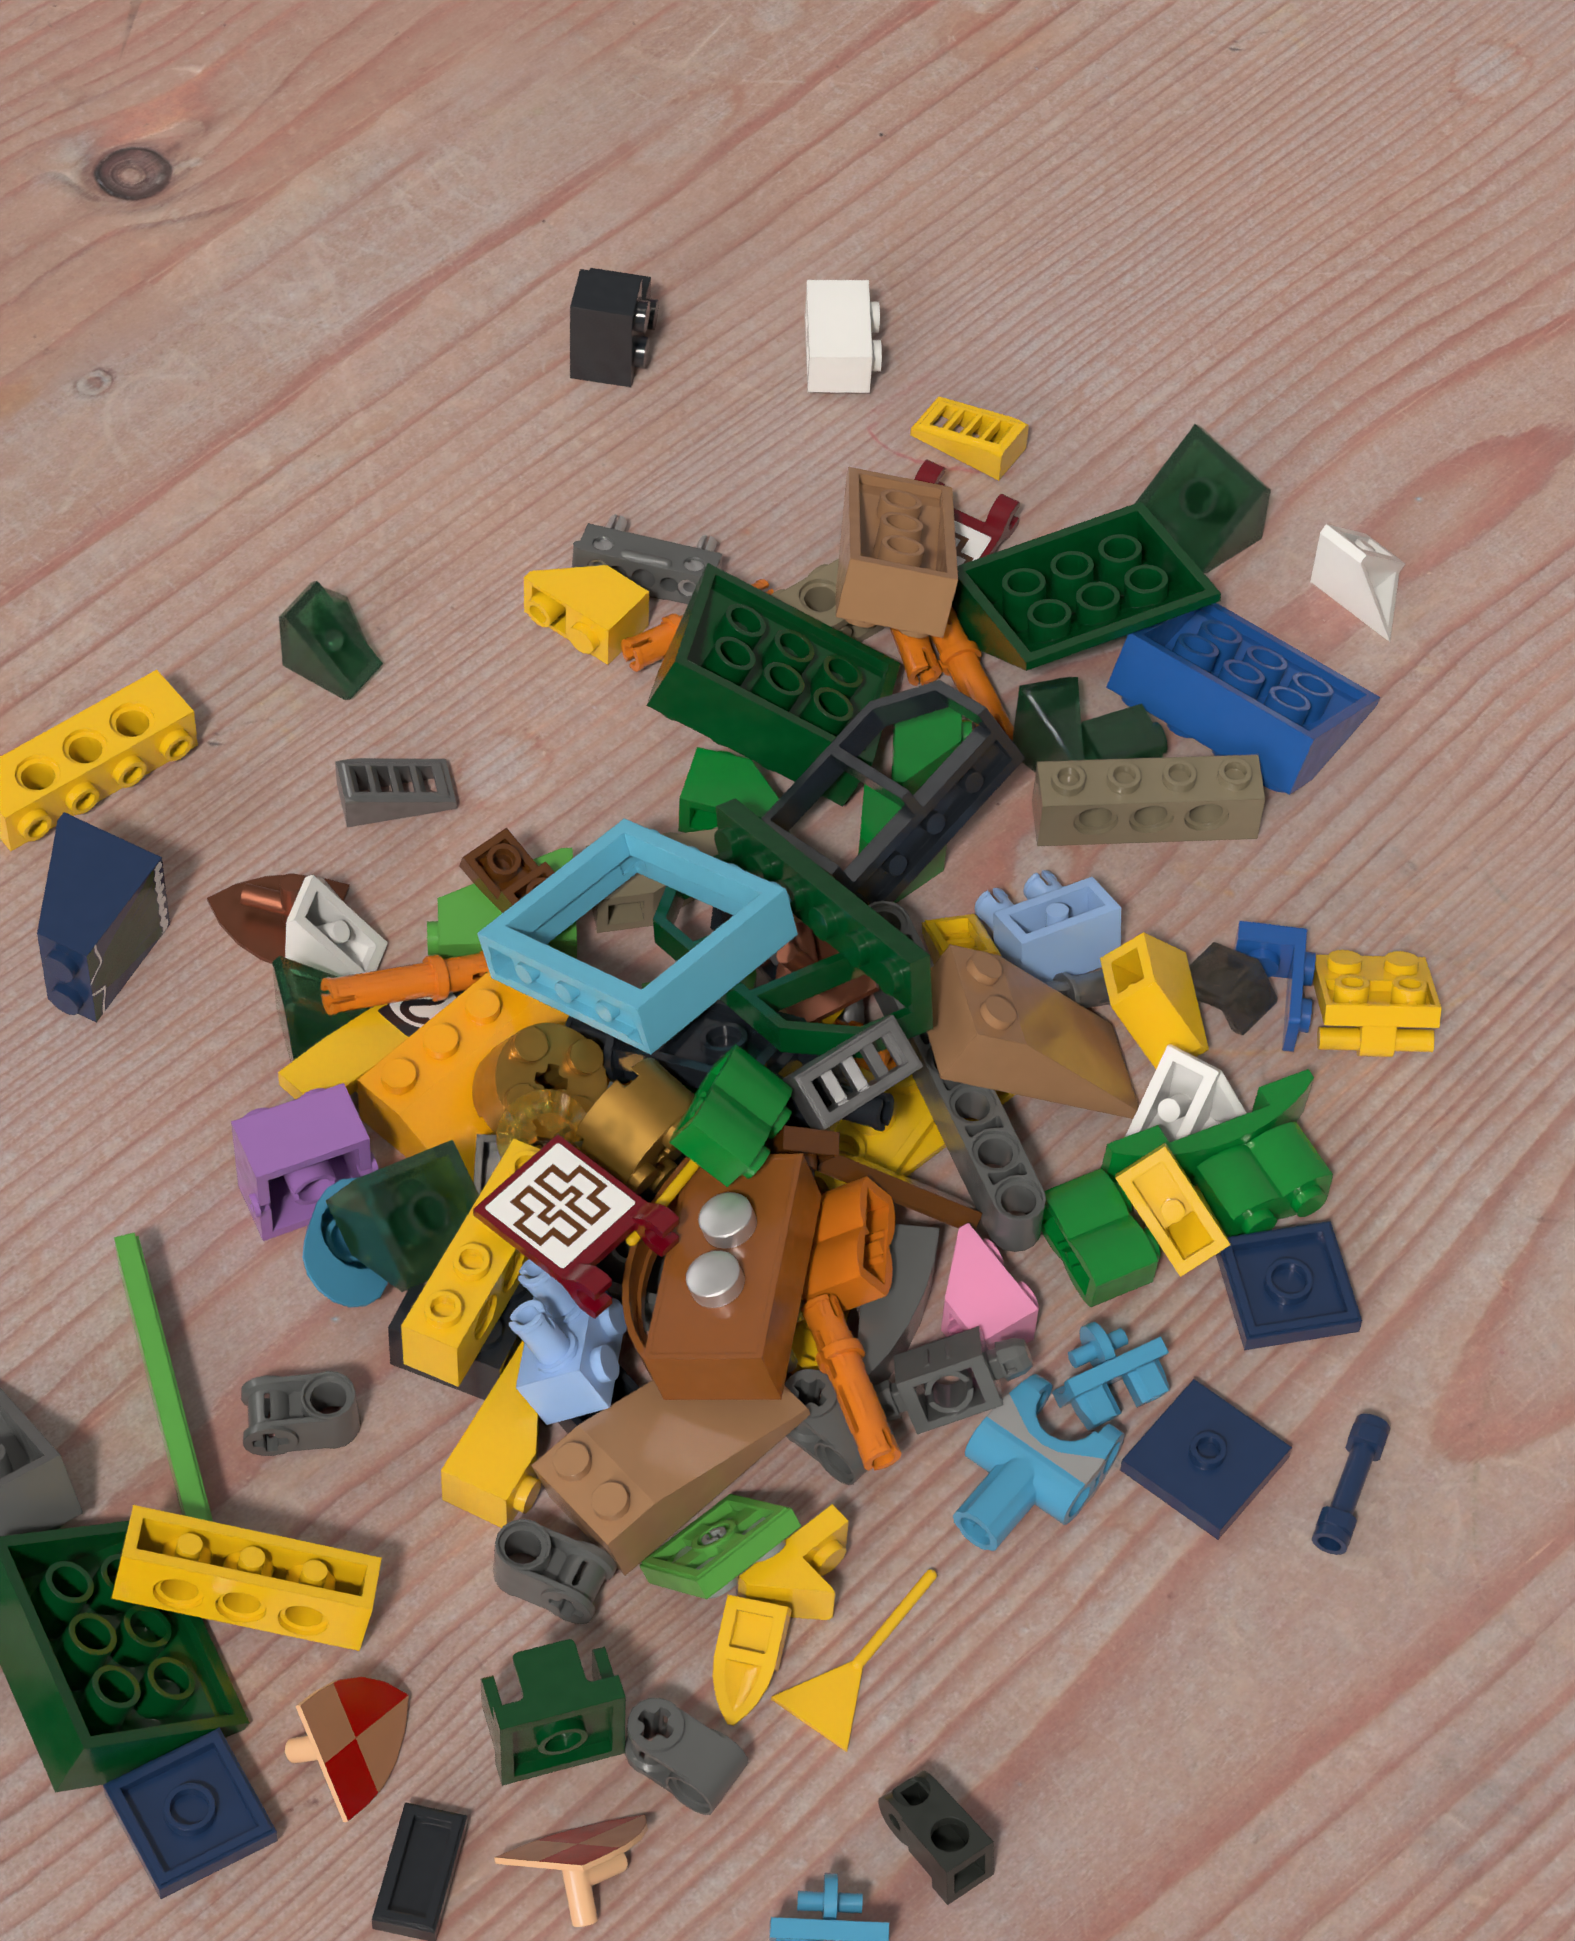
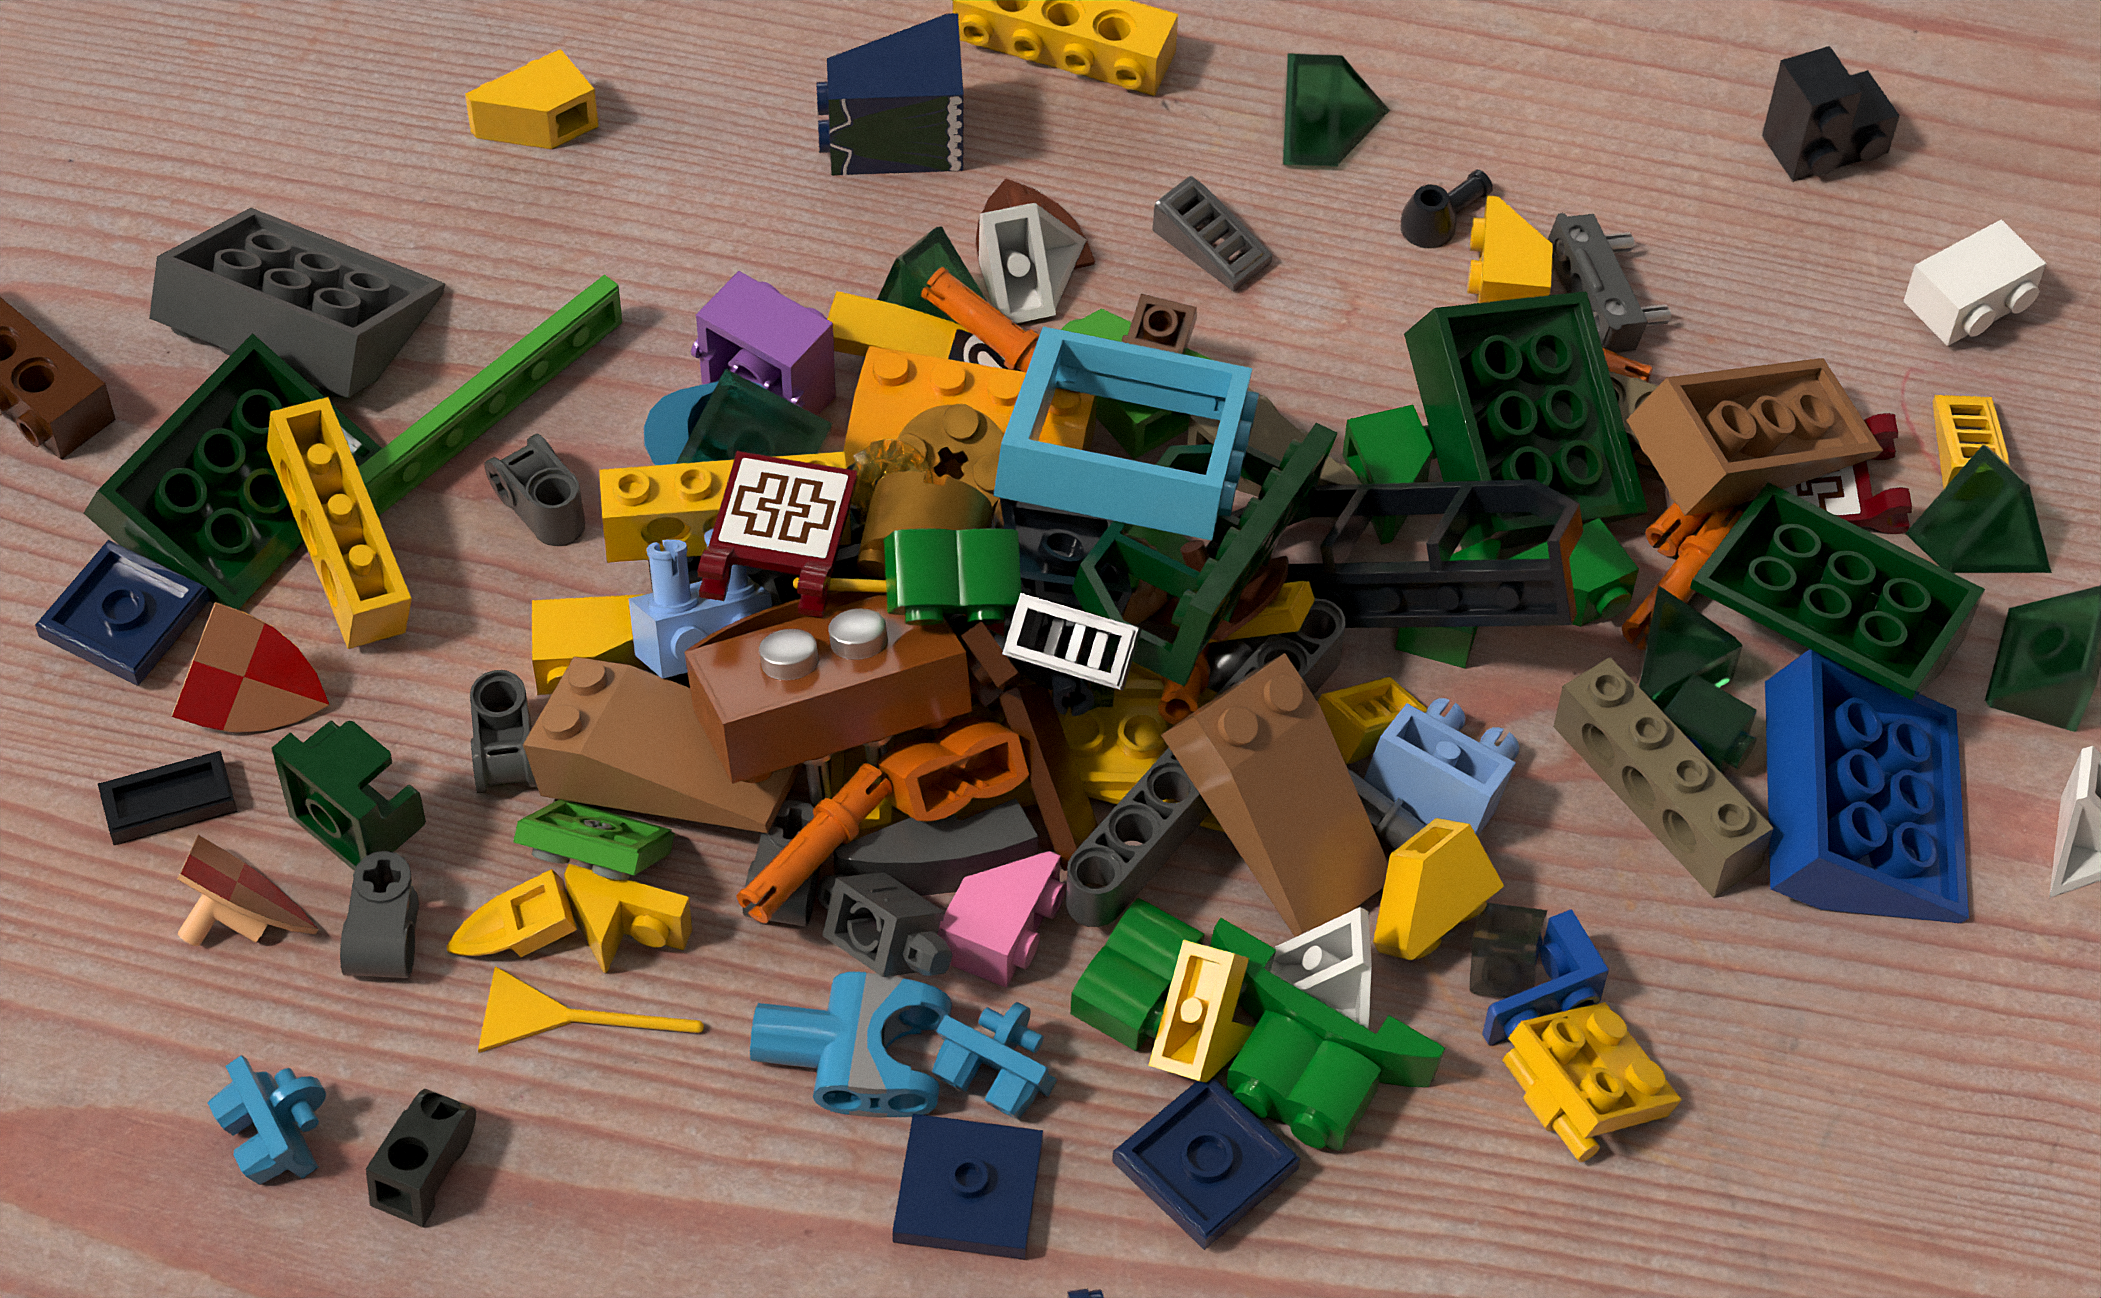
camera: 60 degrees right, 0 degrees up
(490, 631) = (1431, 211): none -> black bar
(1054, 470) = (1983, 521): none -> clear green slope

